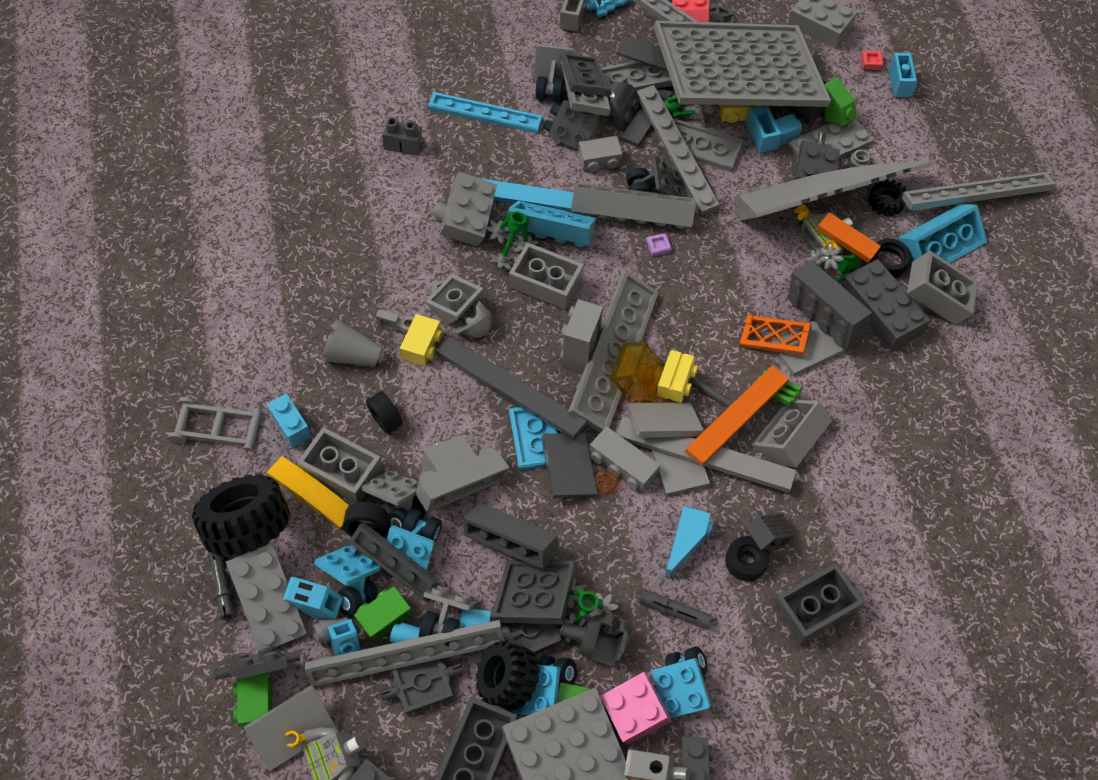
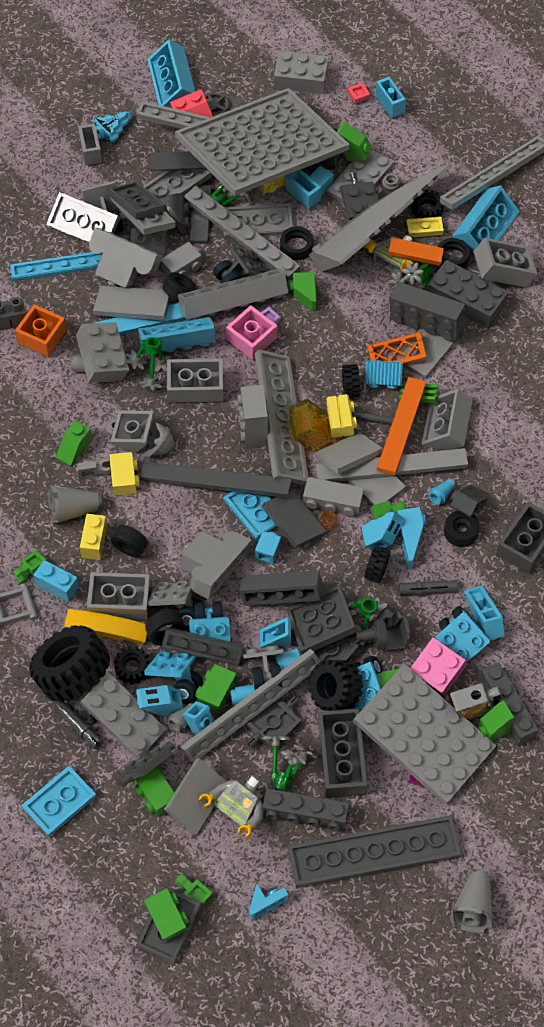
camera: 25 degrees left, 0 degrees up
(151, 660) = (59, 801): none -> medium azure plate
(273, 392) = (29, 565): none -> bright green plate
(303, 537) = (126, 655): none -> black tyre
(353, 391) = (93, 536): none -> light yellow piece
(391, 288) = (74, 443): none -> bright green slope
(396, 754) = (284, 779): none -> plant
(423, 164) = (40, 330): none -> orange brick
(481, 585) = (276, 634): none -> medium azure slope
(521, 73) = (80, 217): none -> plate
(524, 483) = (268, 547): none -> medium azure brick
(528, 174) = (131, 303): none -> light grey tile
(540, 126) = (122, 258): none -> light grey brick
(582, 172) = (177, 284): none -> black tyre
(630, 556) = (377, 564): none -> black tyre
(631, 250) = (251, 332): none -> bright pink brick
(654, 522) = (382, 530): none -> medium azure slope
(671, 502) = (381, 509): none -> bright green plate
(708, 343) = (351, 380): none -> black tyre
(711, 229) = (304, 289): none -> bright green slope
(723, 669) = (485, 612): none -> medium azure slope
(730, 169) = (293, 232): none -> black tyre
(745, 507) = (441, 492): none -> medium azure cone
(748, 350) = (383, 373): none -> medium azure brick
(873, 217) = (424, 227): none -> light yellow plate

